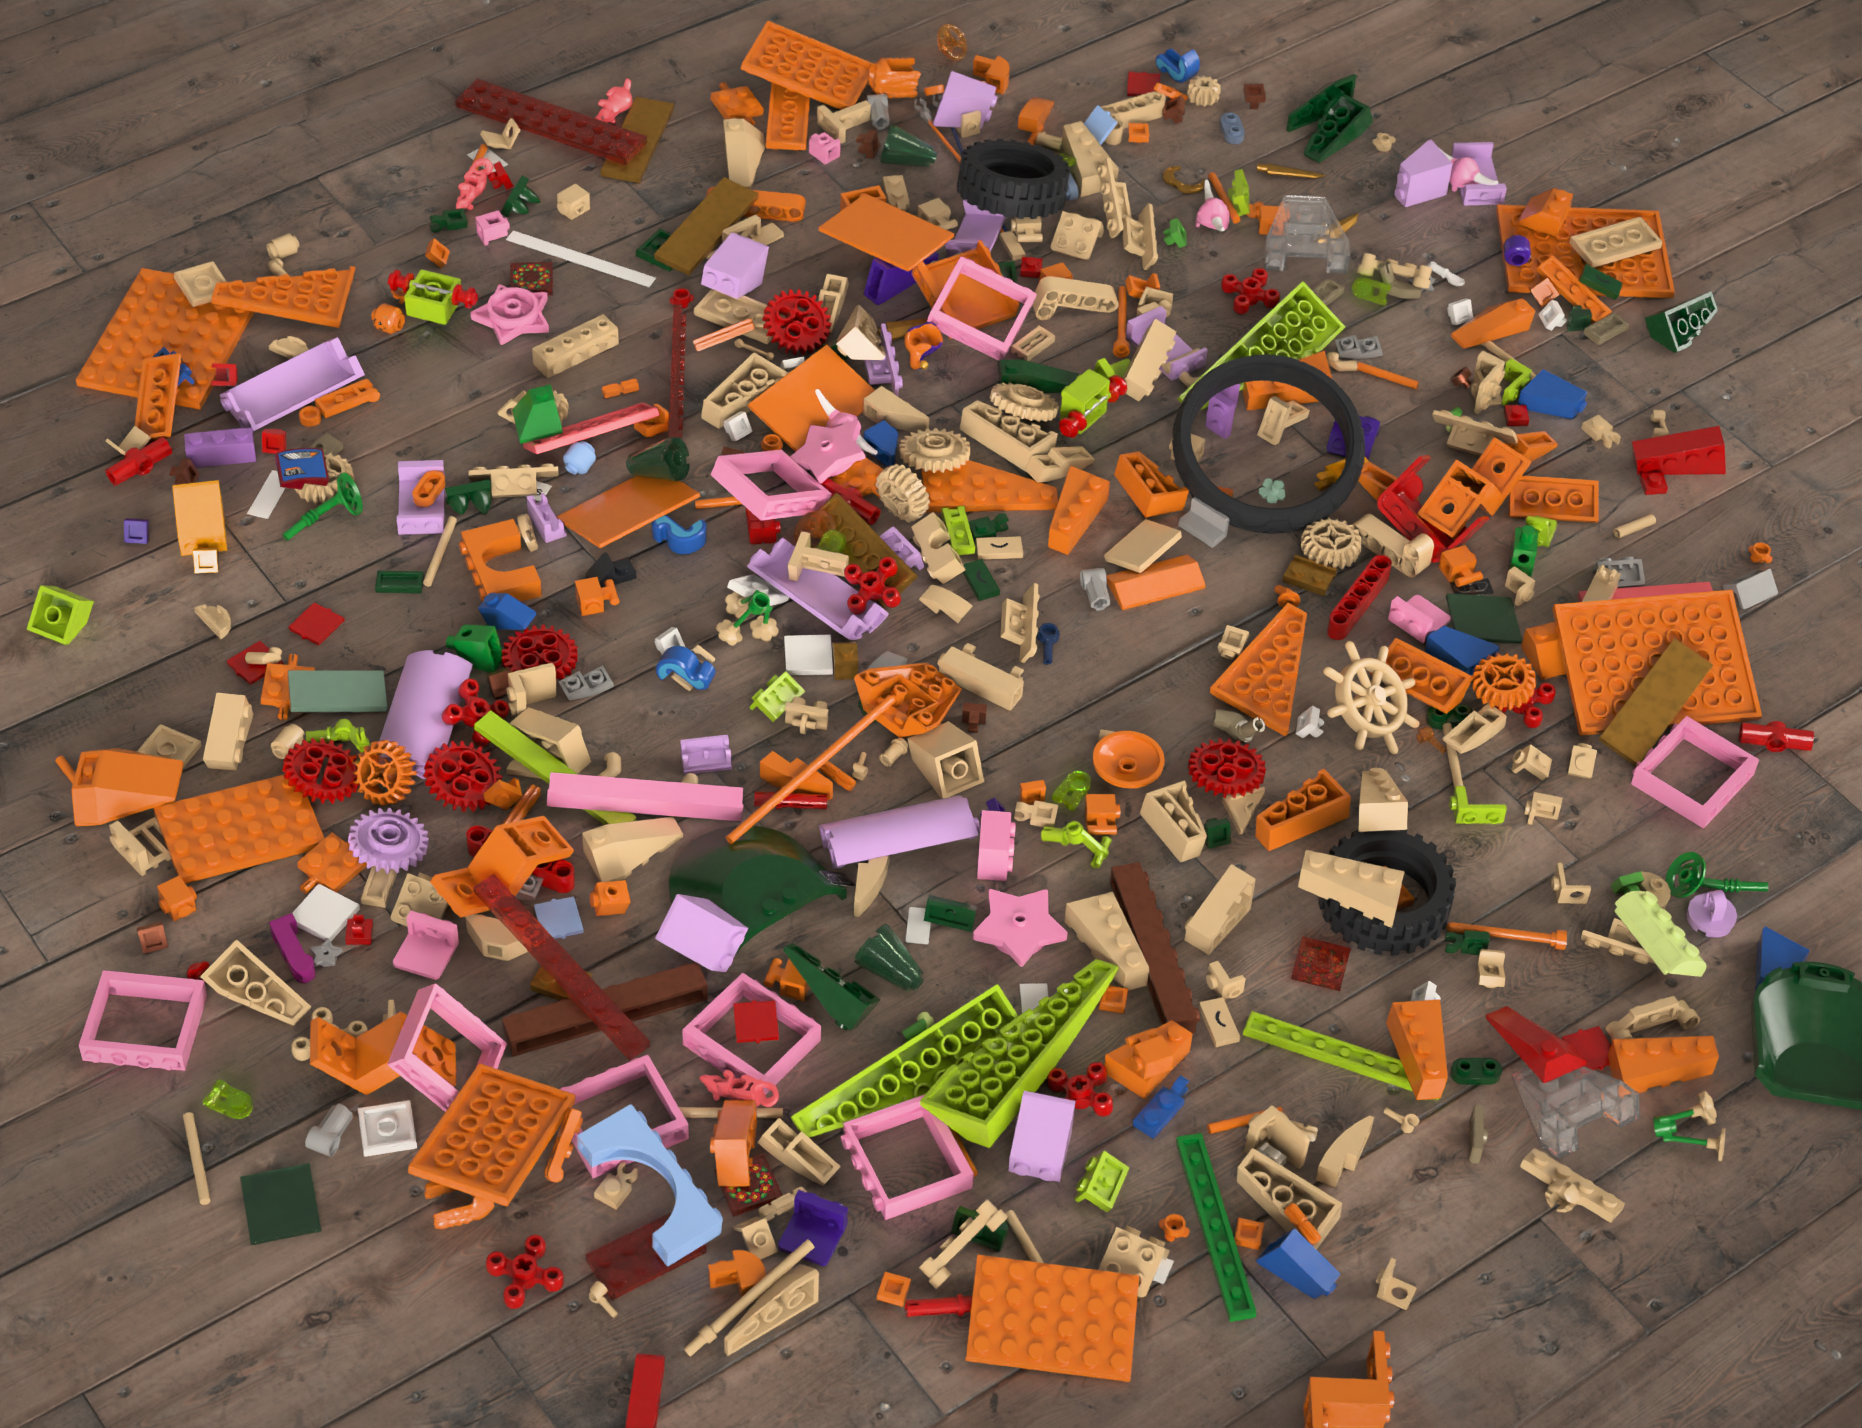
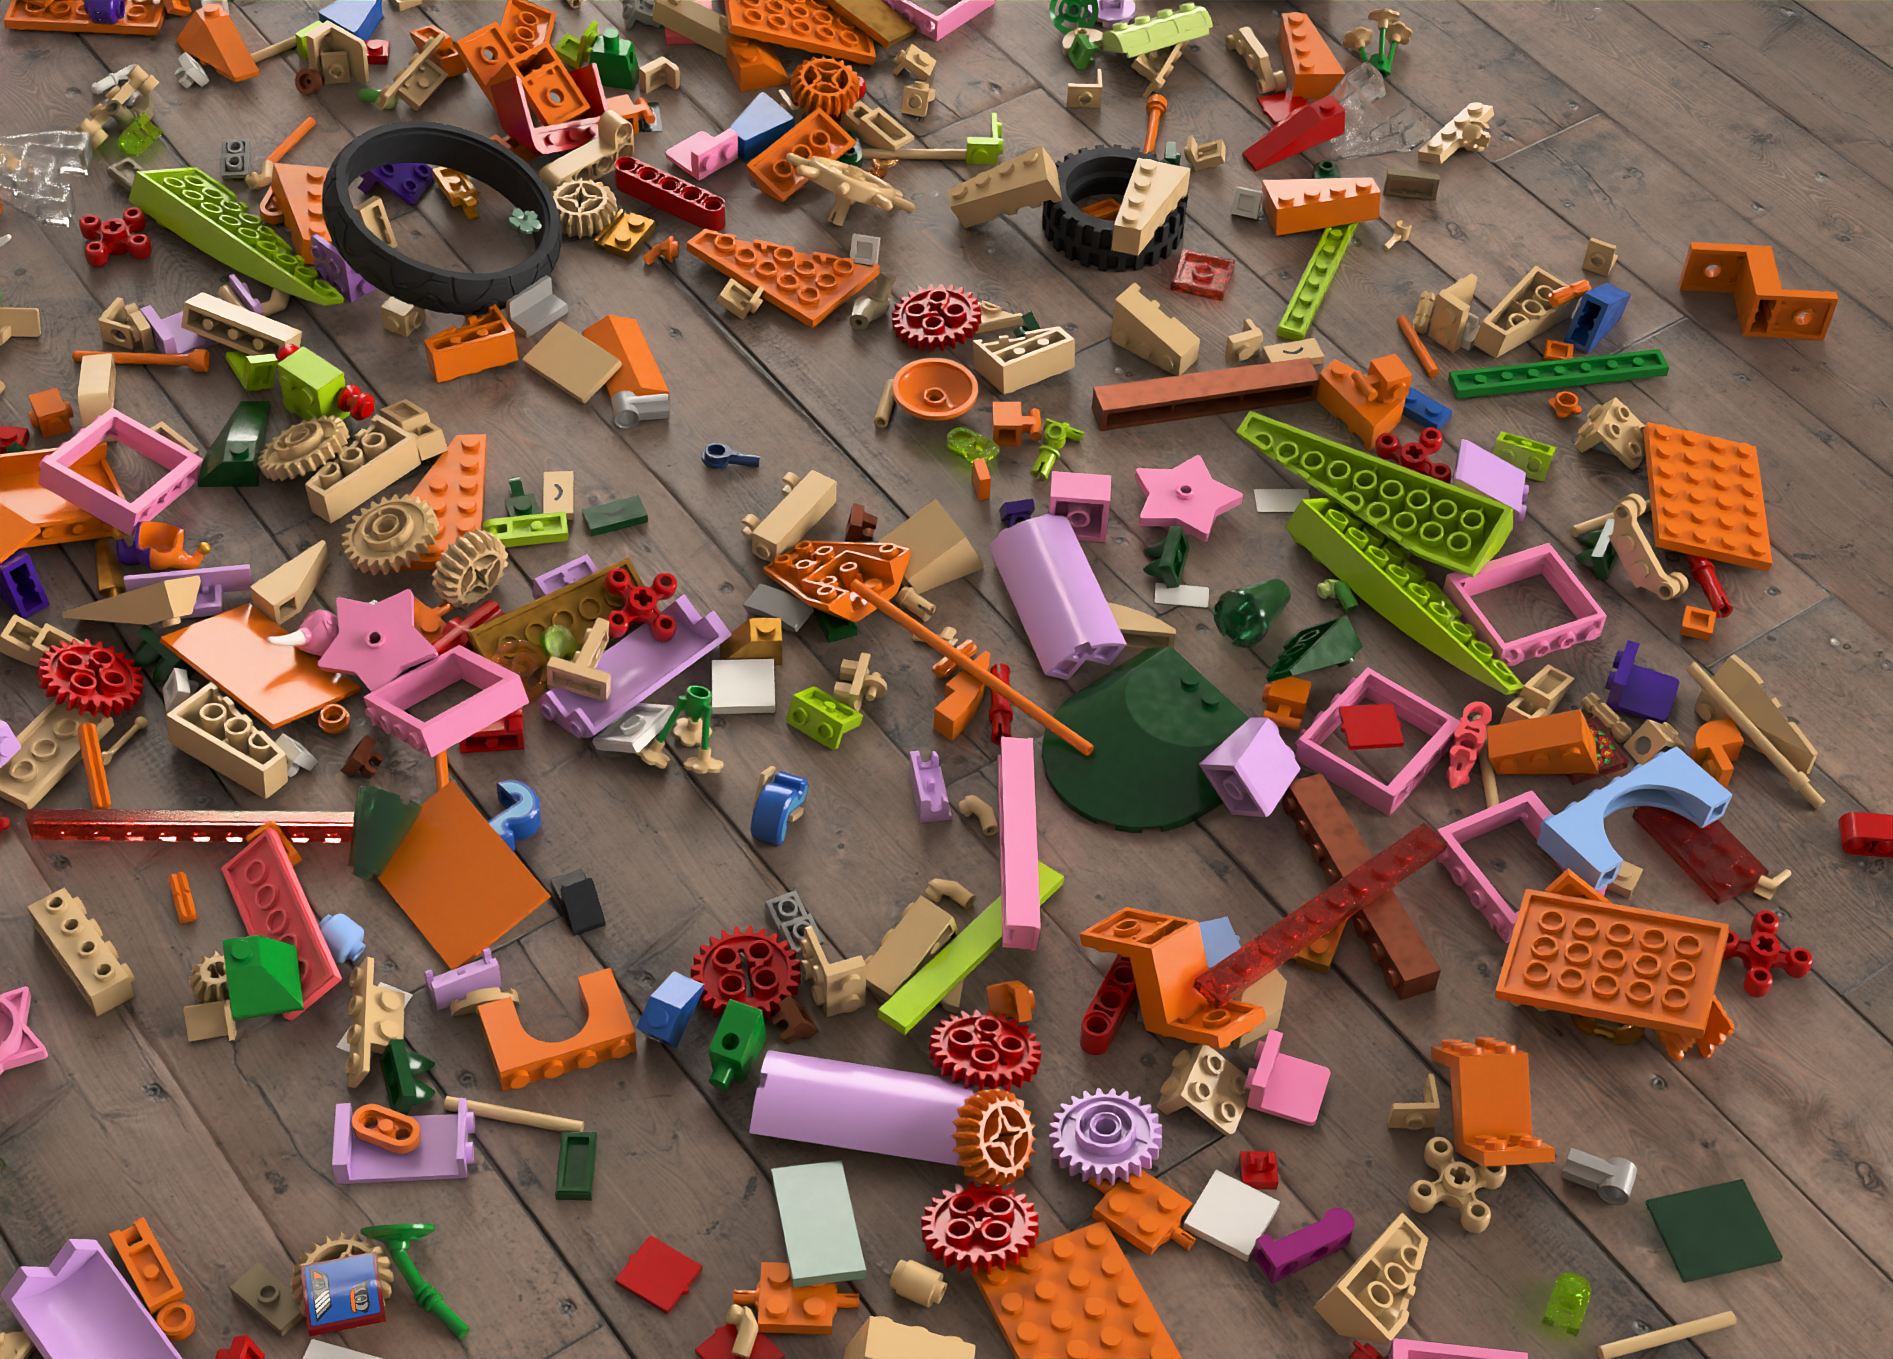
camera: 90 degrees left, 0 degrees up
(329, 959) = (1301, 1214): light grey plate -> none
(343, 732) = (893, 1211): lime pin -> none
(378, 887) = (1182, 1154): tan tile -> none
(387, 1128) = (1575, 1116): white tile -> none
(462, 1020) = (1493, 1020): bright pink window -> none
(473, 710) = (864, 1039): red gear -> none
(524, 804) = (1043, 995): orange axle -> none
(591, 596) = (630, 914): orange brick -> none
(610, 898) = (1187, 878): orange brick -> none
(621, 847) = (1090, 875): tan wedge -> none
(668, 639) = (725, 827): white tile -> none
(837, 878) = (1133, 655): black sticker -> none
(884, 440) = (357, 587): blue slope -> none
(942, 561) = (544, 553): tan arch -> none
(950, 603) = (659, 544): tan slope -> none
(1019, 622) = (699, 473): tan bracket -> none
(1041, 813) = (1011, 474): tan plate -> none
(1077, 508) = (505, 415): orange wedge -> none
(1108, 935) = (1195, 424): tan wedge -> none
(1137, 286) = (85, 329): orange bracket -> none
(1303, 812) = (1003, 260): orange wedge -> none
(1344, 1152) = (1445, 269): tan slope -> none
(1485, 617) = (702, 109): clear green piece -> none
(1543, 806) = (982, 99): tan bracket -> none

